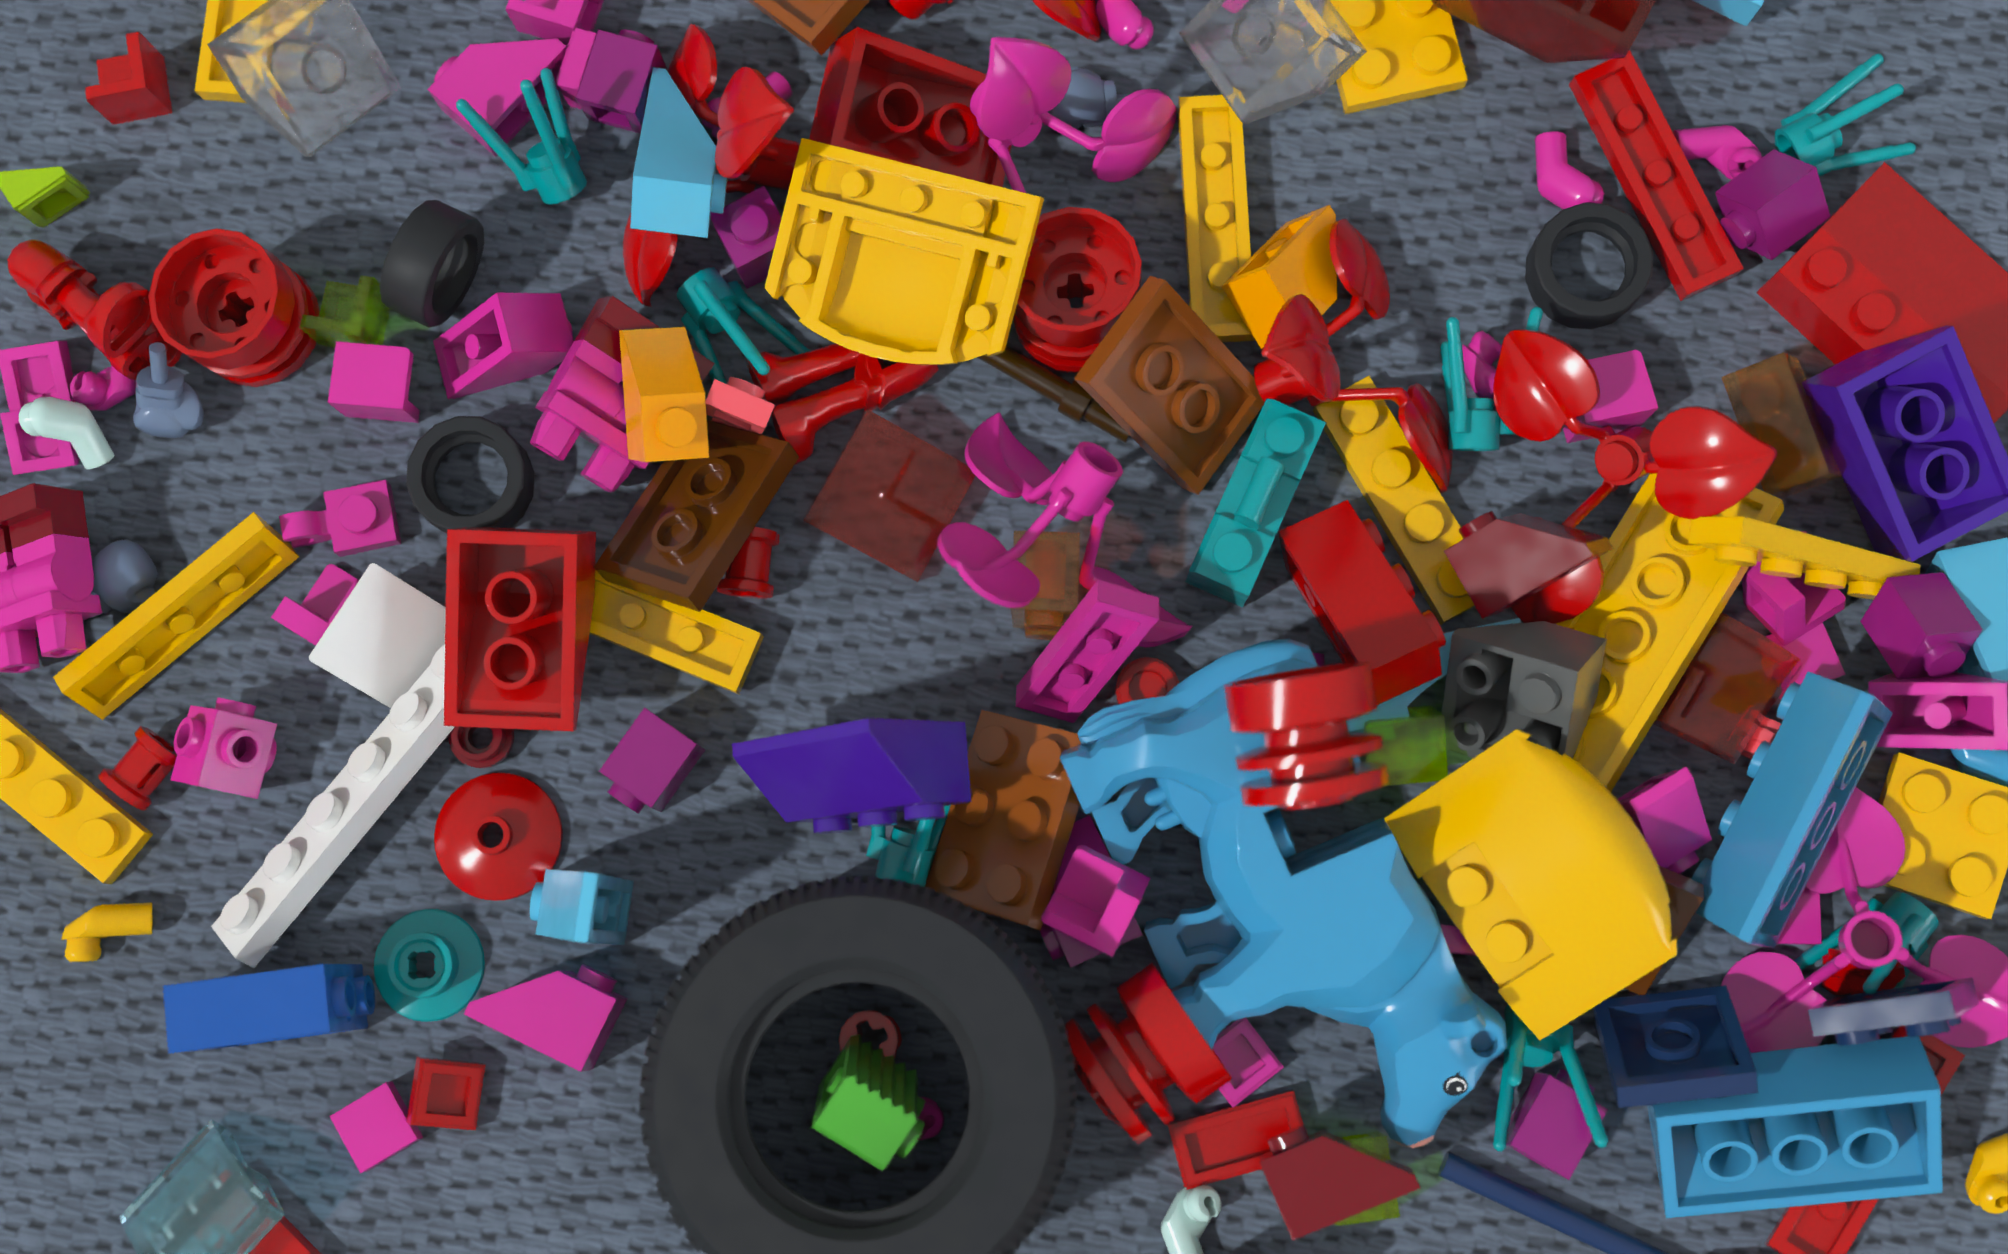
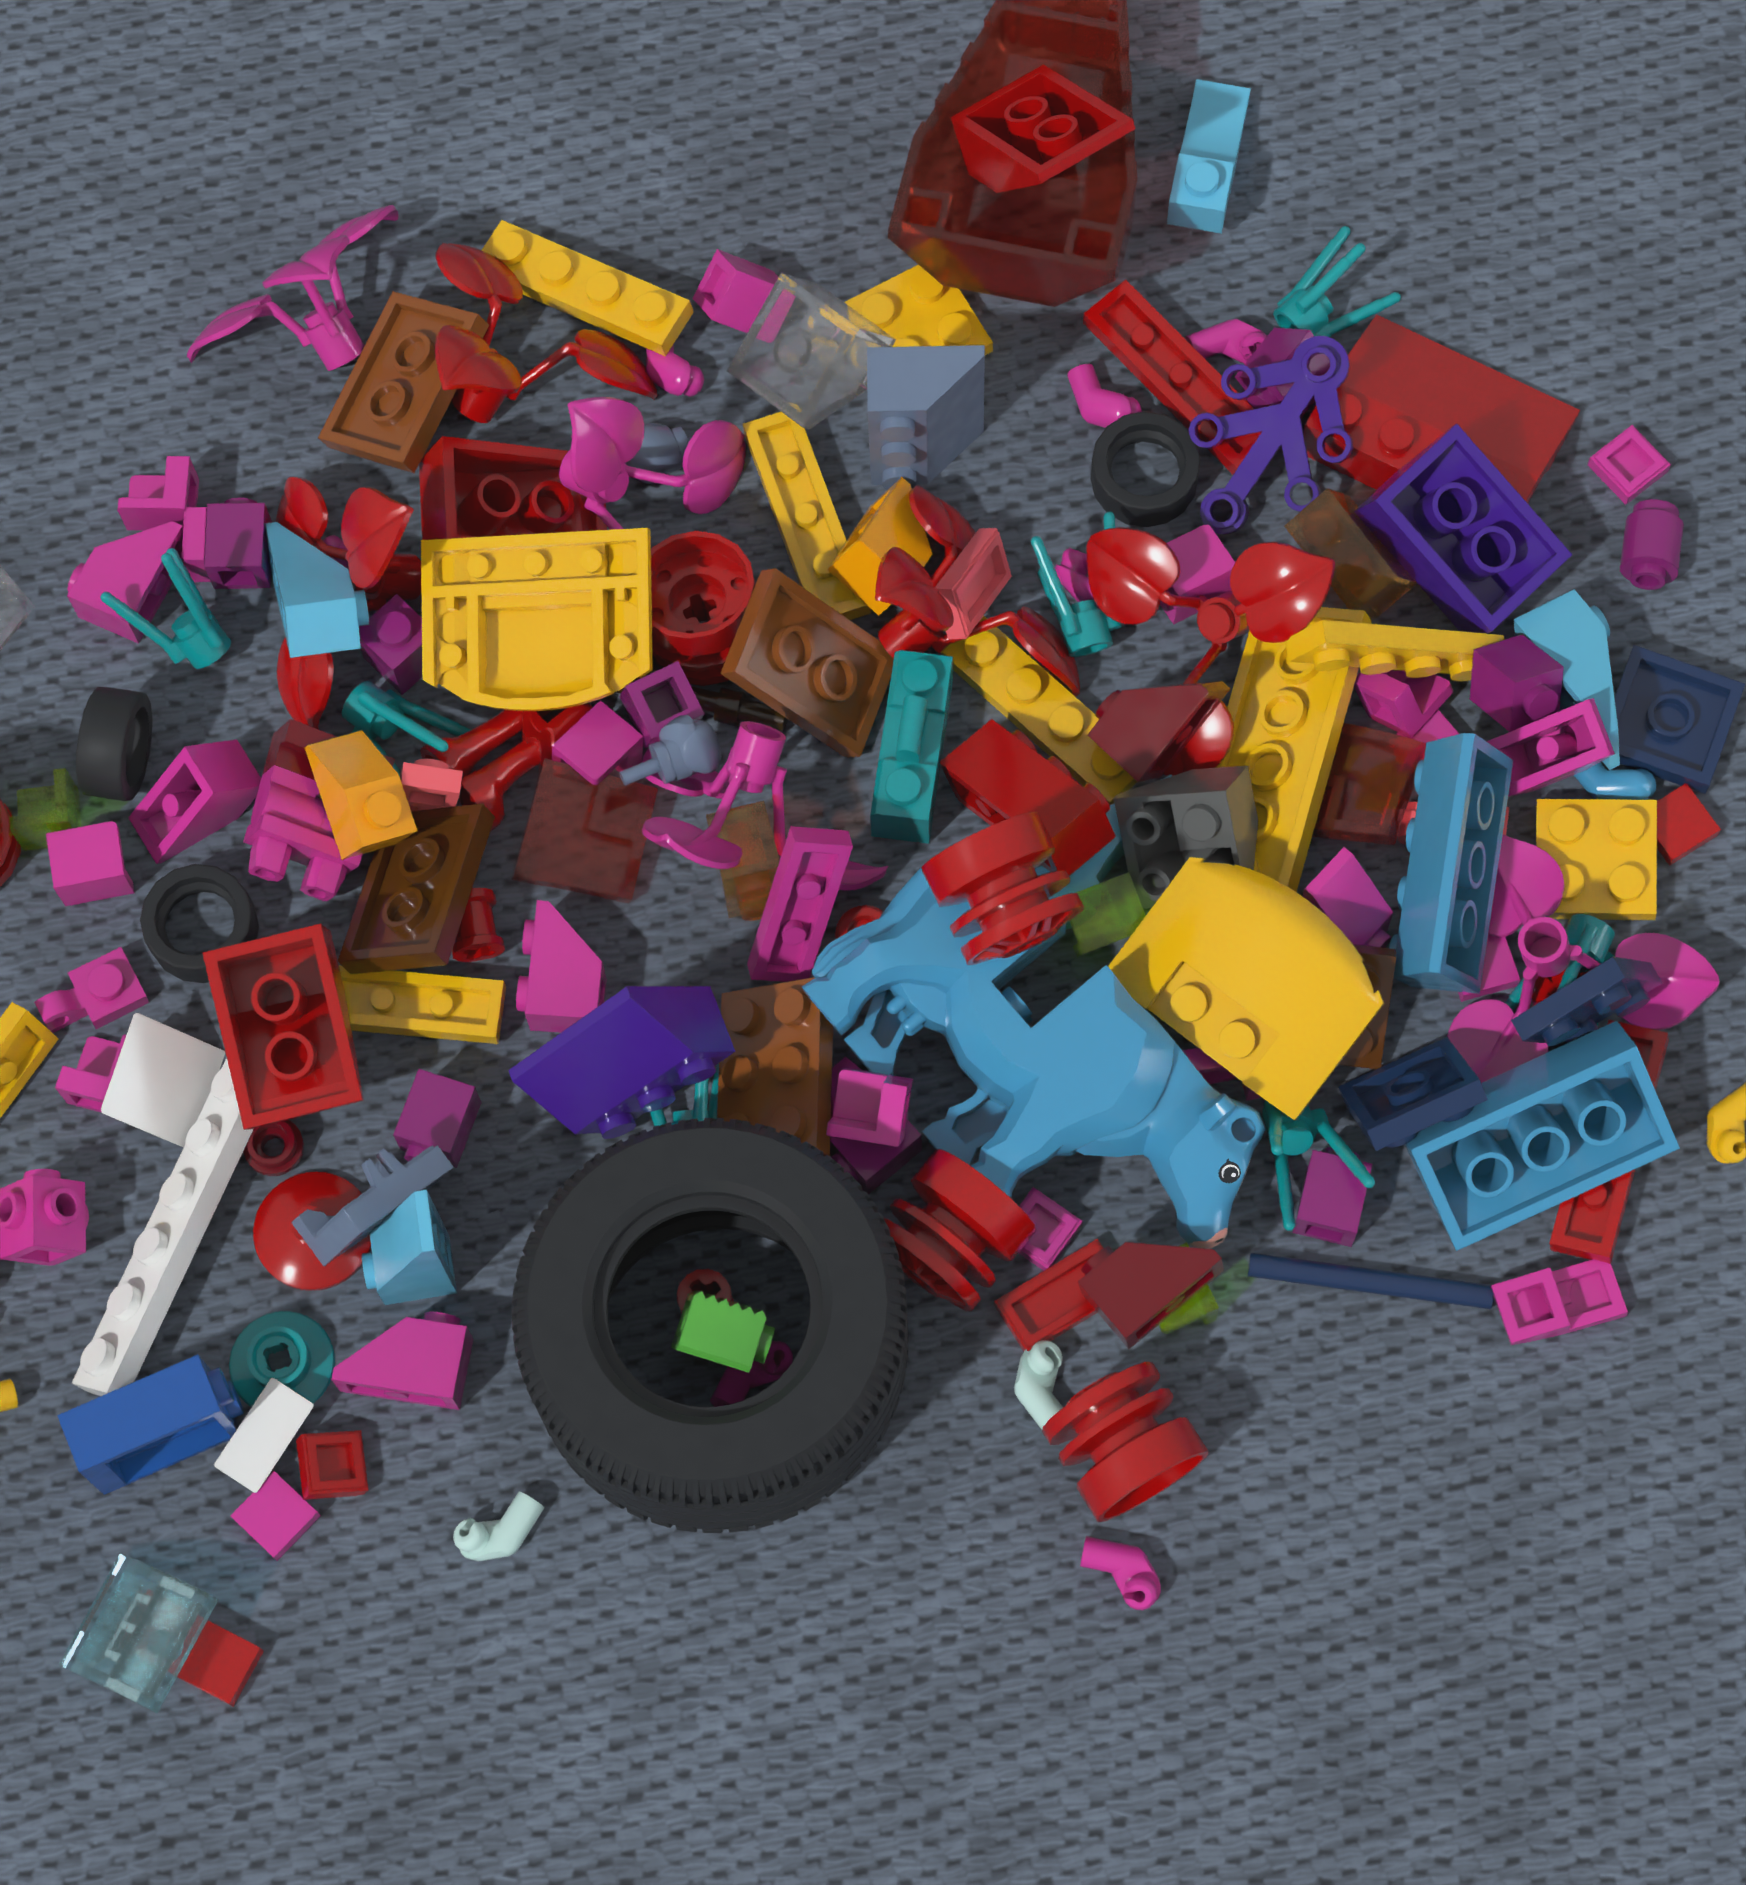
camera: 20 degrees left, 10 degrees down
(384, 1044) = (264, 1435): none -> white sticker
(575, 838) = (389, 1187): none -> sand blue piece
(594, 1218) = (498, 1537): none -> light aqua arm
(823, 648) = (563, 976): none -> dark pink slope
(928, 409) = (599, 744): none -> dark pink panel
(1005, 387) = (658, 700): none -> magenta brick
(1010, 448) = (682, 750): none -> sand blue piece
(1372, 138) = (922, 409): none -> sand blue slope
(1374, 341) = (974, 581): none -> coral tile
(1750, 265) = (1278, 426): none -> dark purple plant

